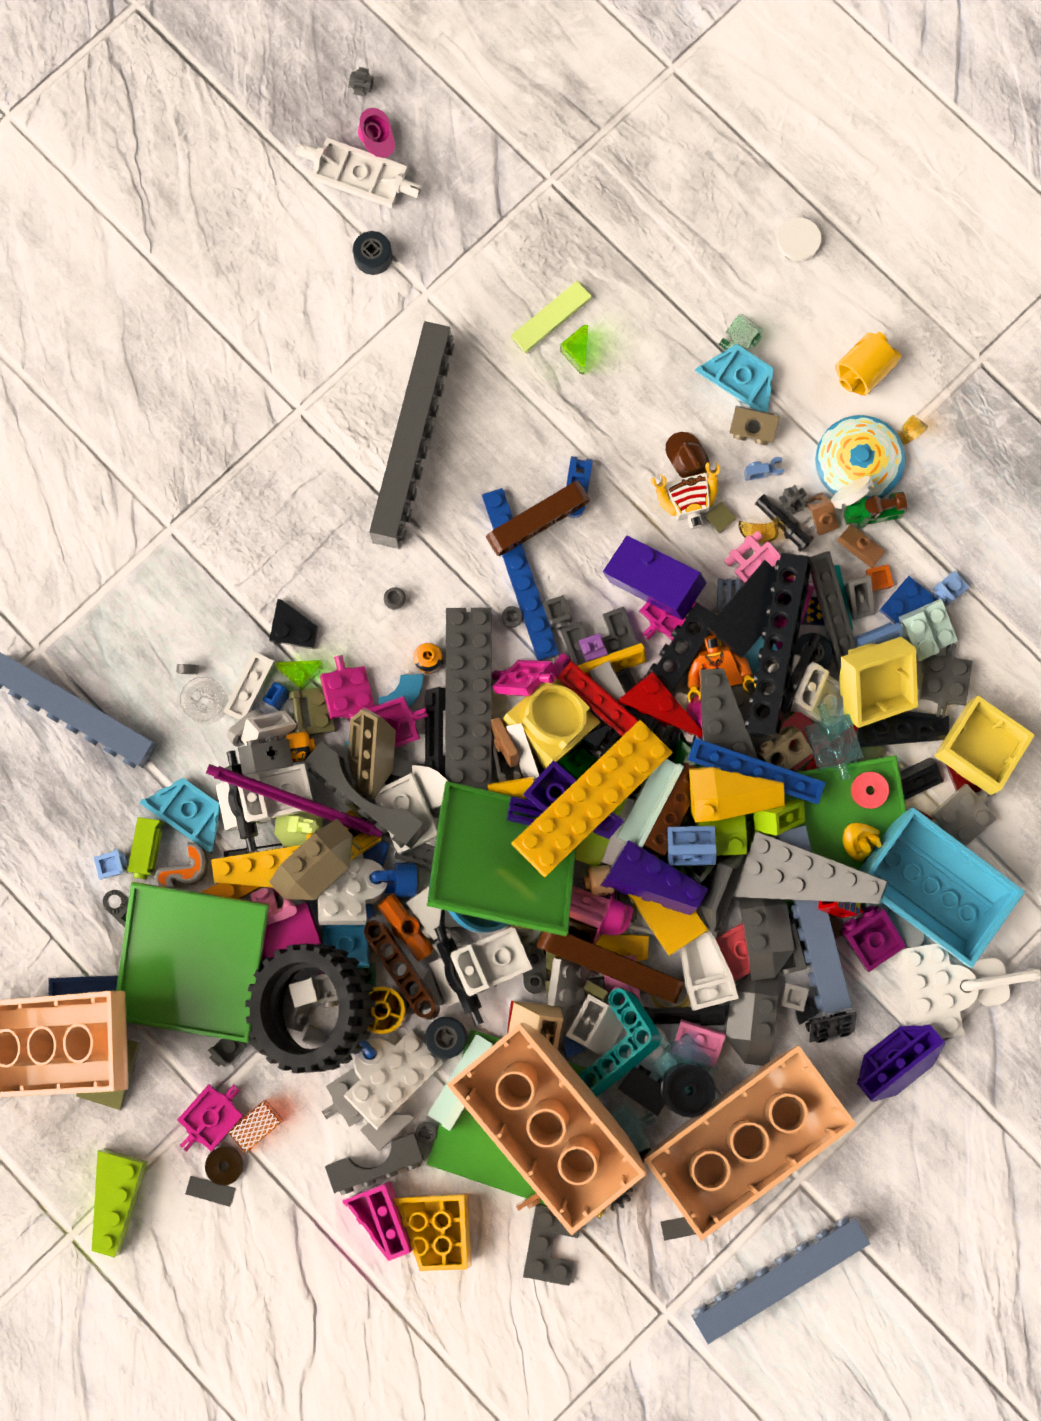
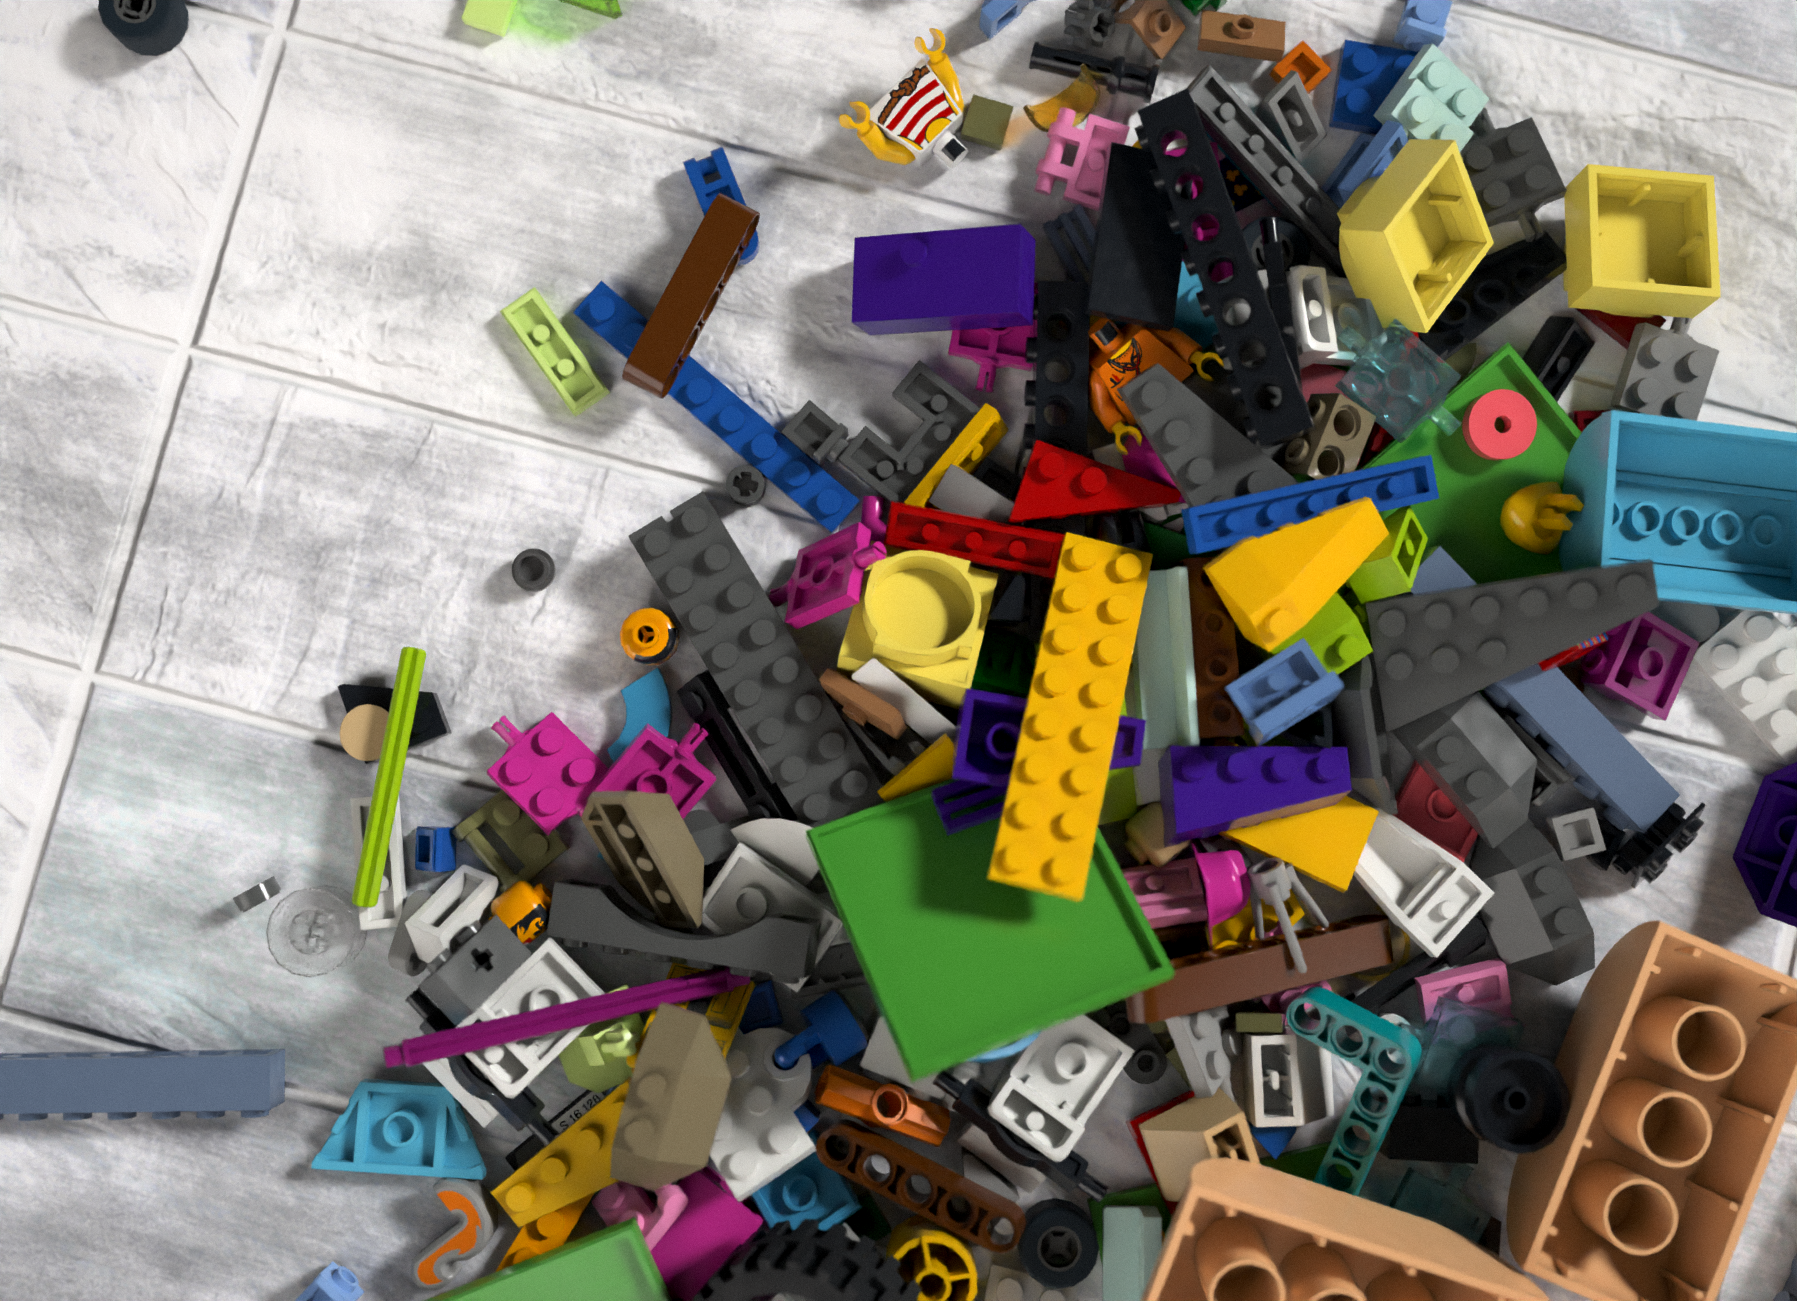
camera: 40 degrees left, 5 degrees up
(145, 847) = (368, 1236): lime window -> none
(277, 651) = (389, 777): none -> lime axle
(279, 626) = (364, 732): none -> tan sticker
(300, 672) = (450, 788): clear neon green slope -> none
(411, 435) = (394, 277): dark grey brick -> none
(462, 507) = (554, 352): none -> yellowish green tile
(593, 647) = (911, 458): medium lavender tile -> none
(638, 931) = (1272, 882): none -> light grey plant
(686, 454) = (870, 50): reddish brown piece -> none

